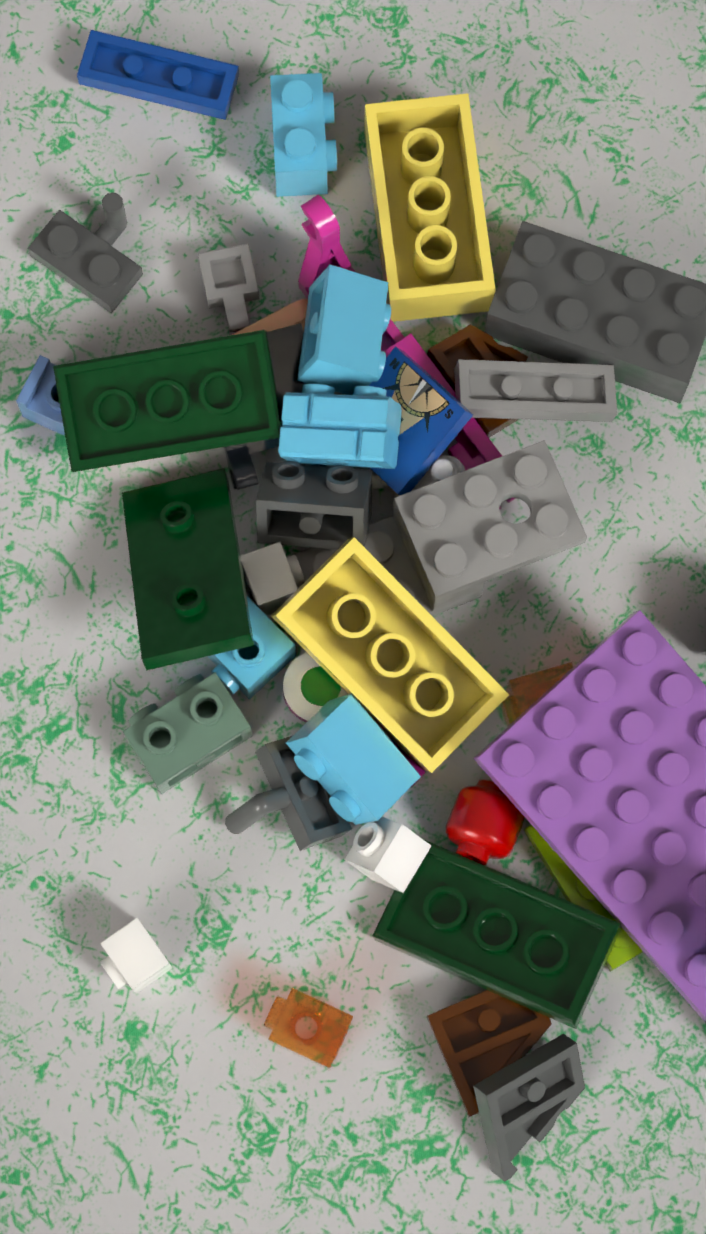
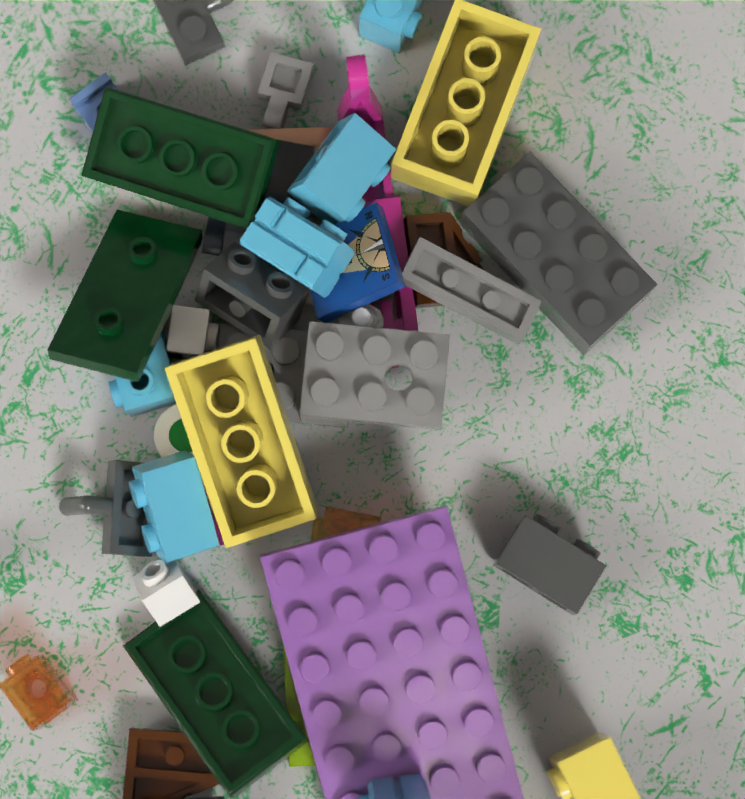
camera: 30 degrees right, 5 degrees up
(187, 731) = (65, 419): sand green brick -> none
(484, 823) = (248, 605): red head -> none

